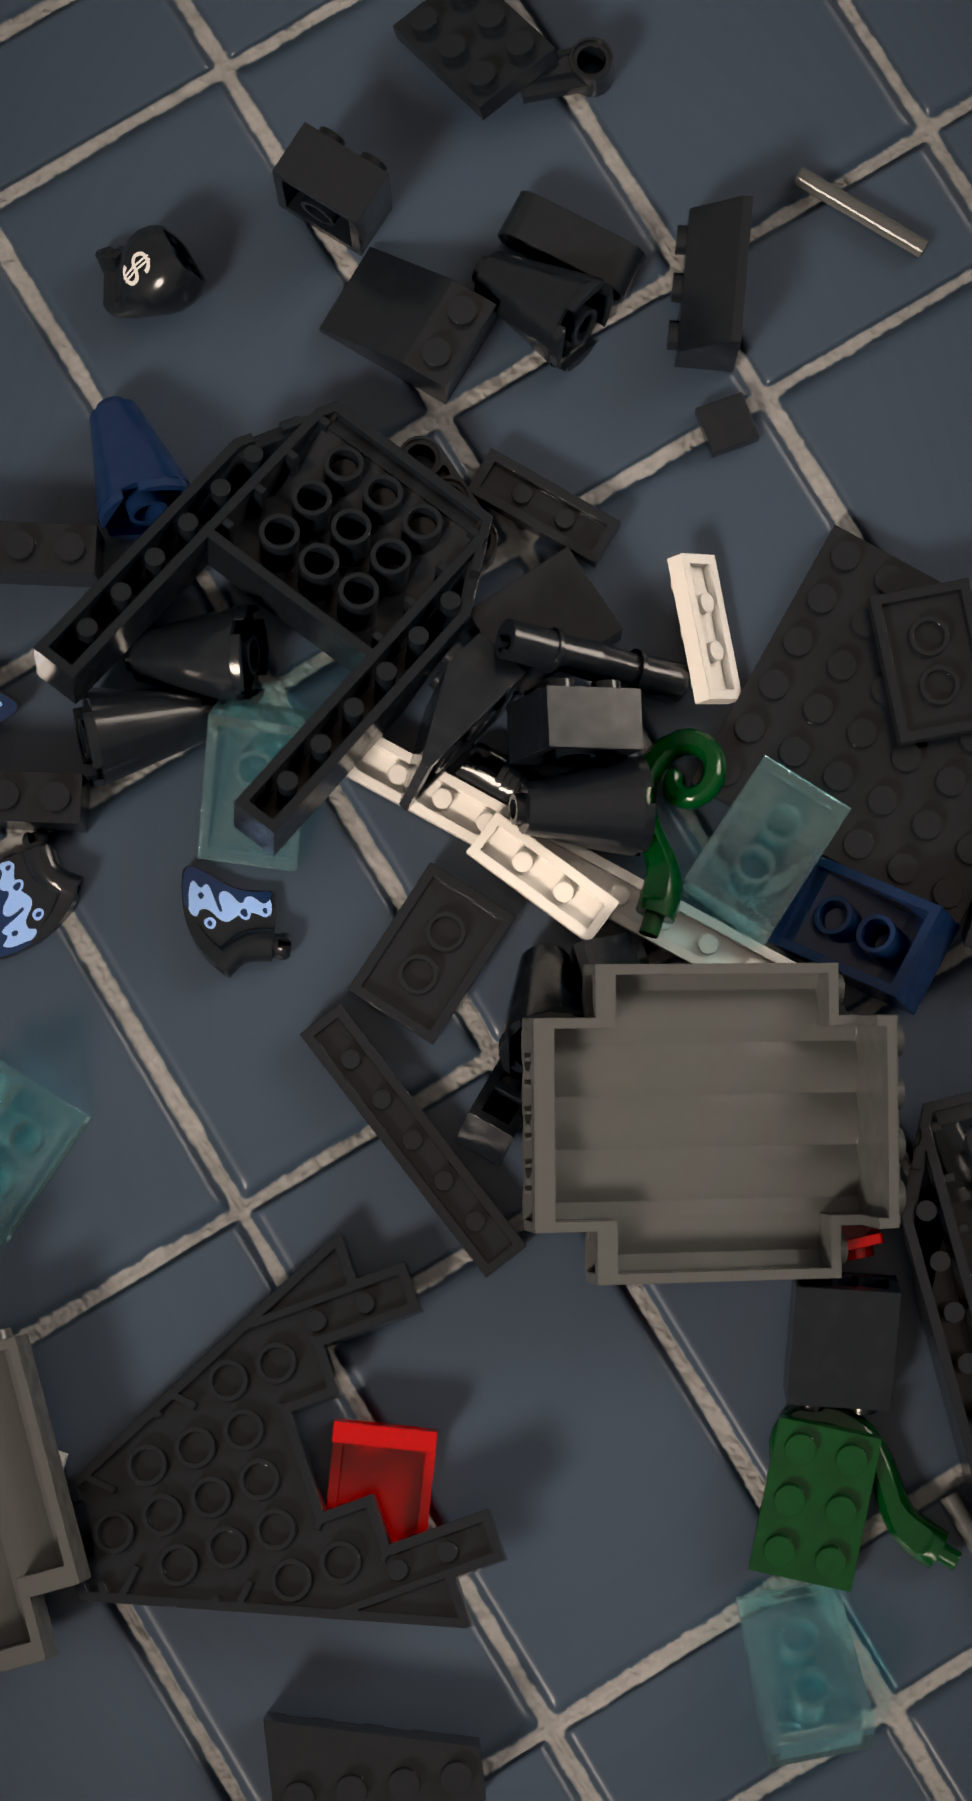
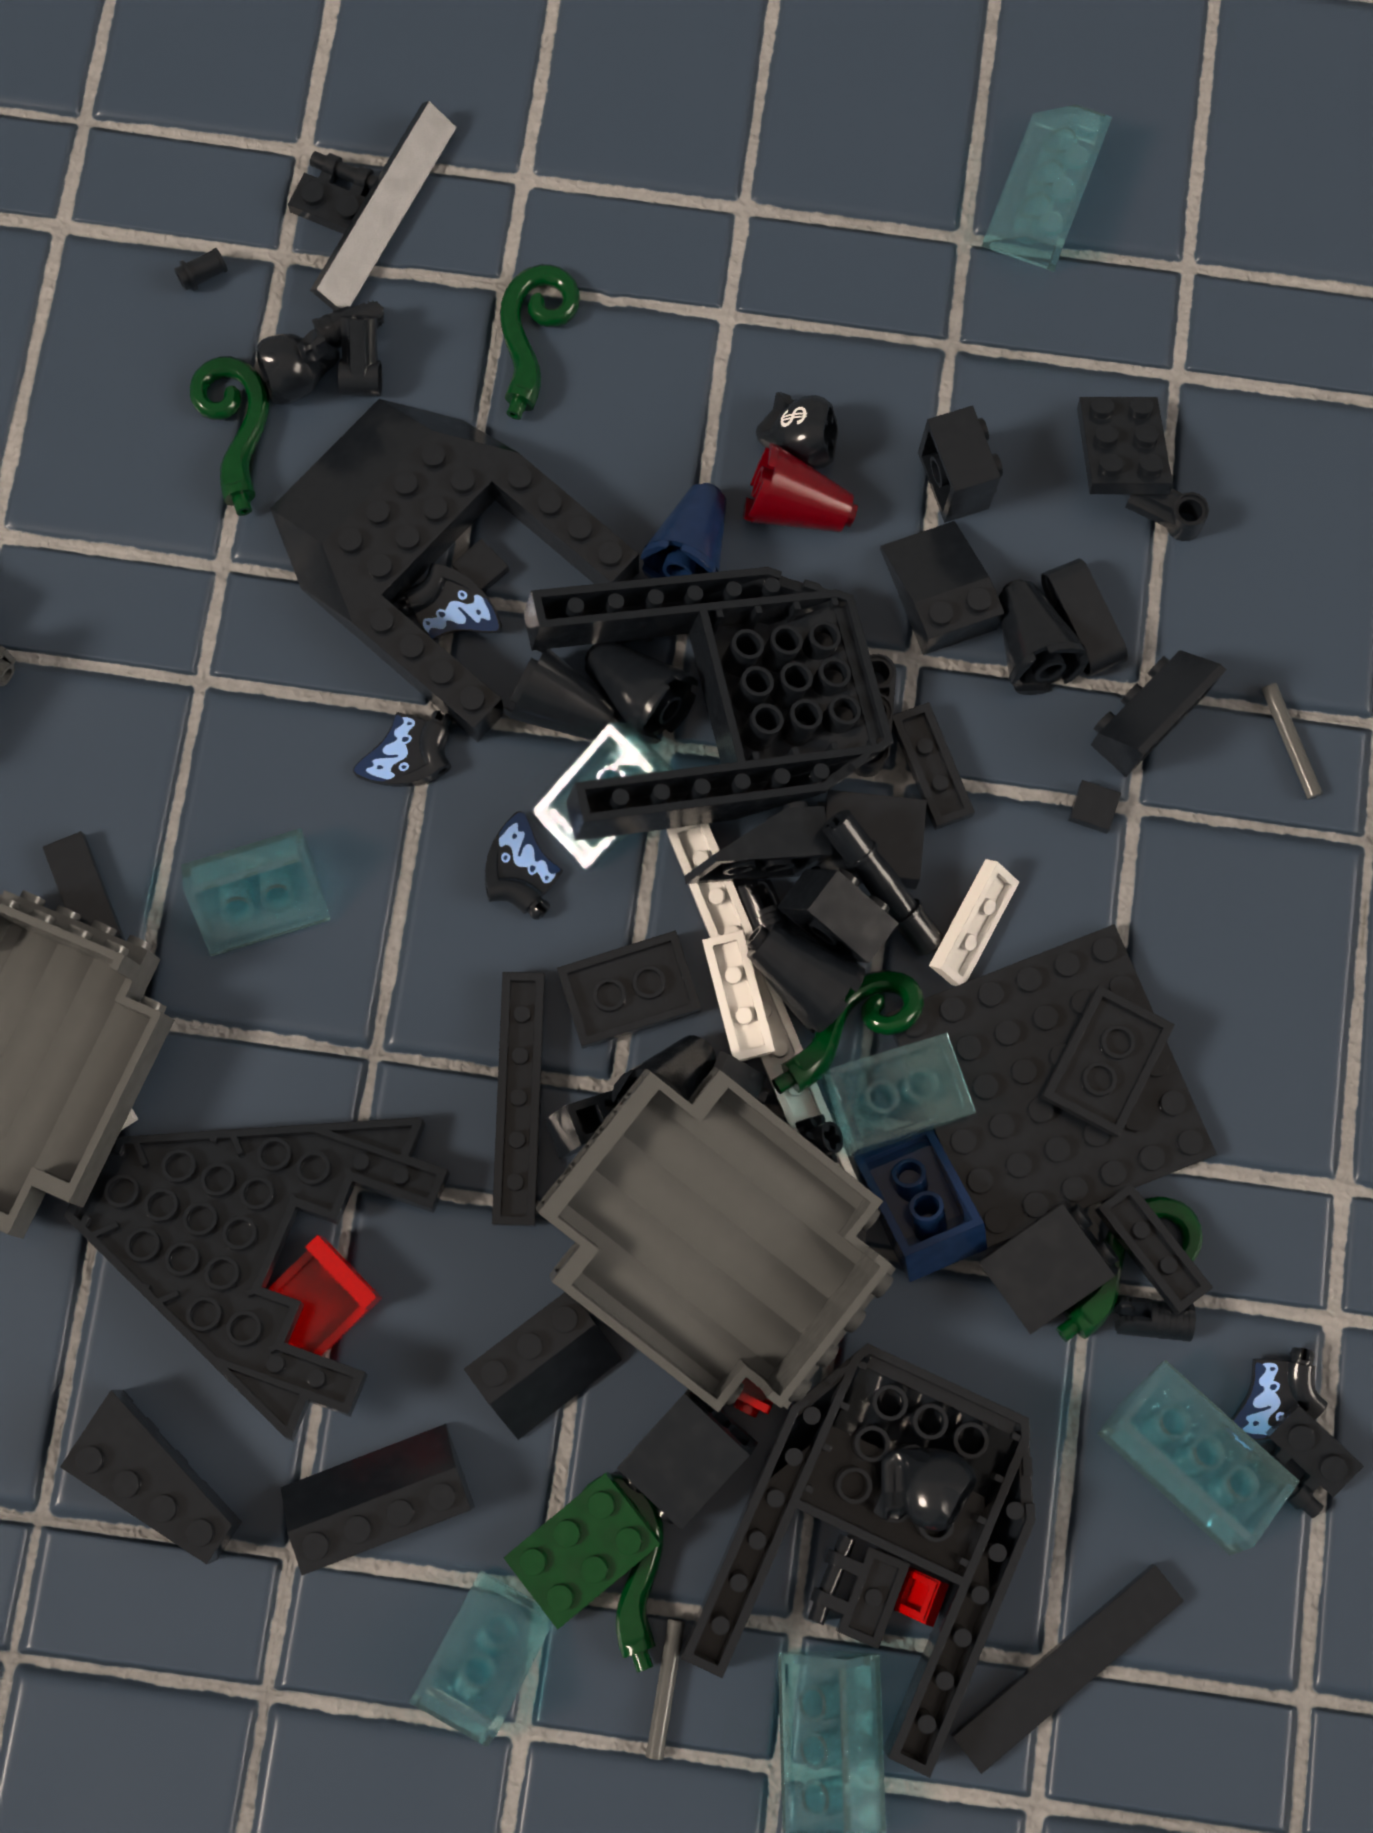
camera: 35 degrees right, 5 degrees down
(199, 344) = (796, 495): none -> dark red cone
(587, 1615) = (375, 1499): none -> black slope
(639, 1366) = (542, 1364): none -> black slope
(728, 946) = (822, 1134): none -> black gear

